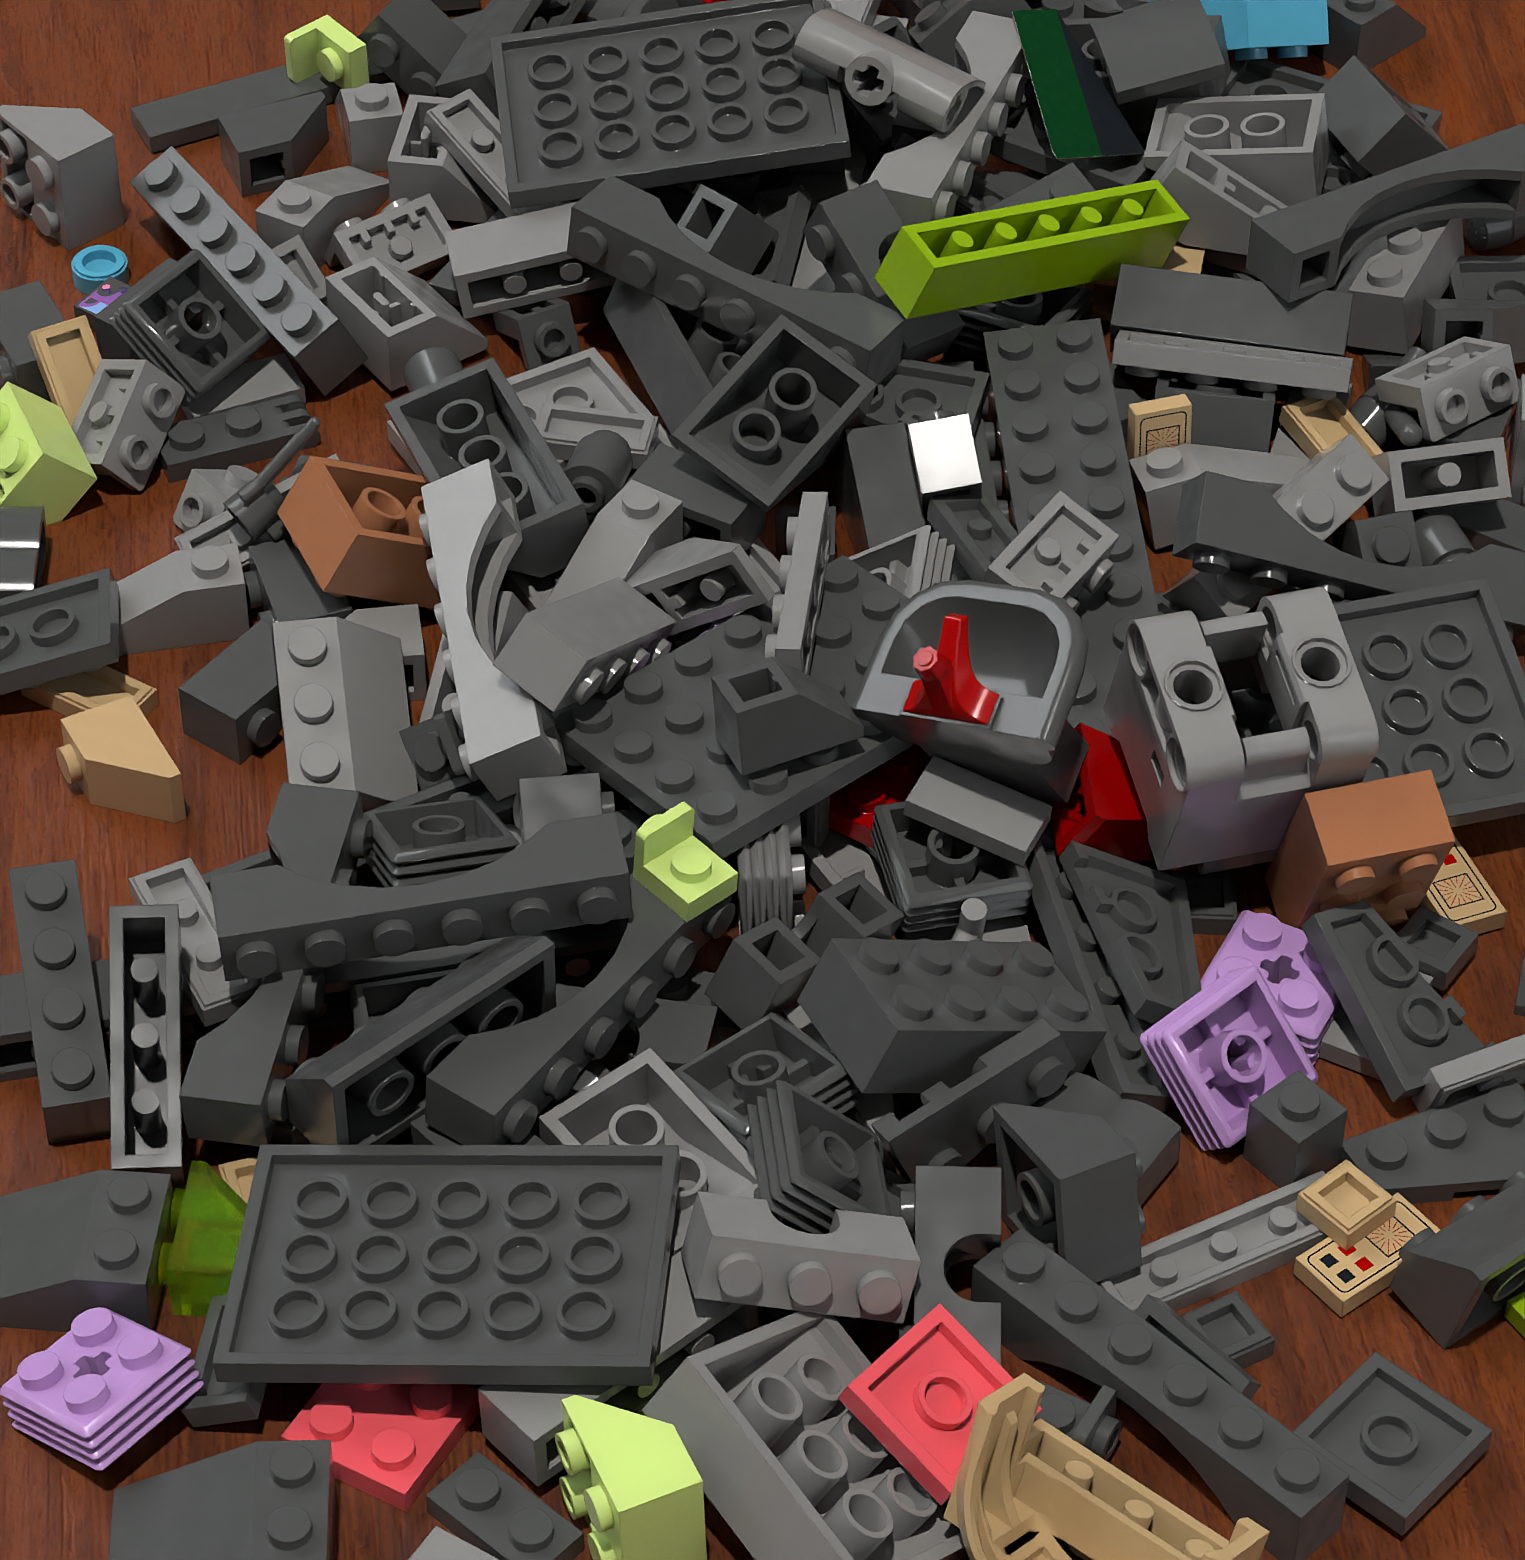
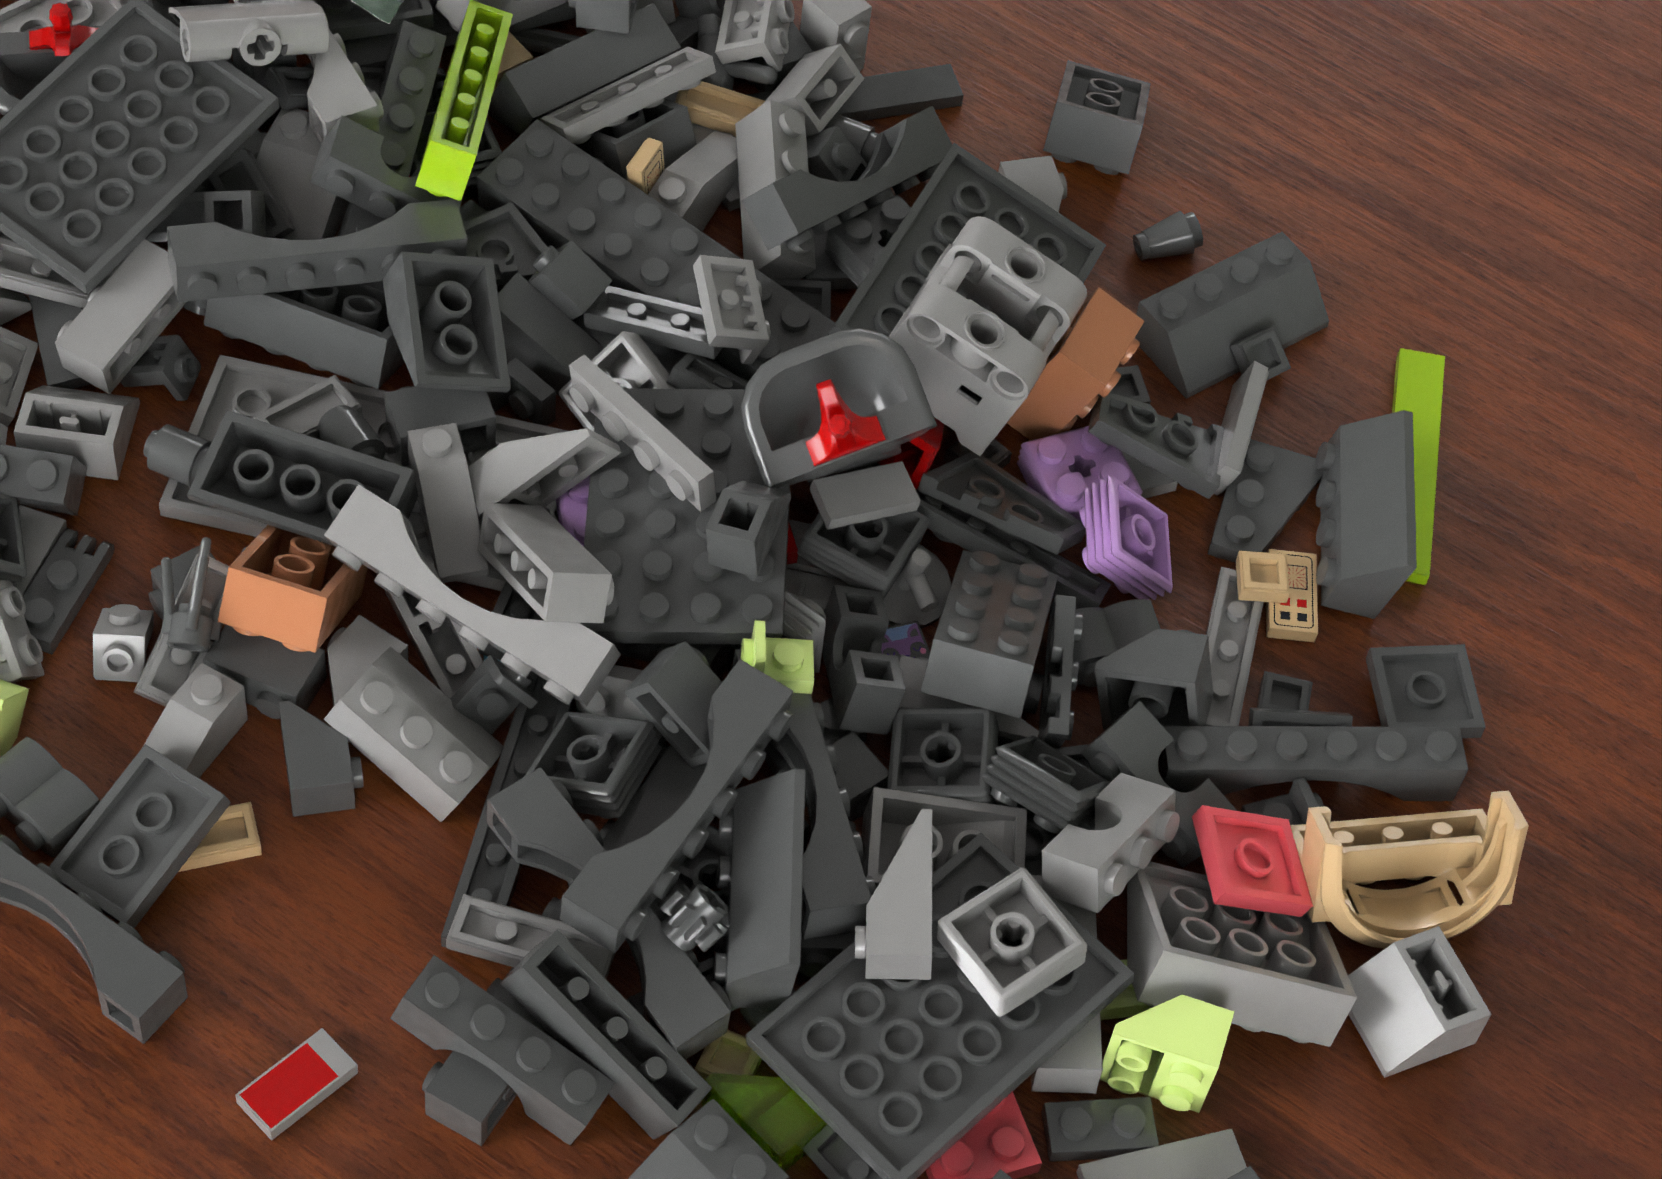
camera: 55 degrees left, 10 degrees up
(121, 761) = (303, 866): tan slope -> none
(321, 1002) = (694, 917): none -> dark grey gear
(513, 1133) = (900, 912): none -> light grey slope
(556, 1235) = (1013, 910): none -> light grey brick
(1294, 1131) = (1196, 555): dark grey brick -> none

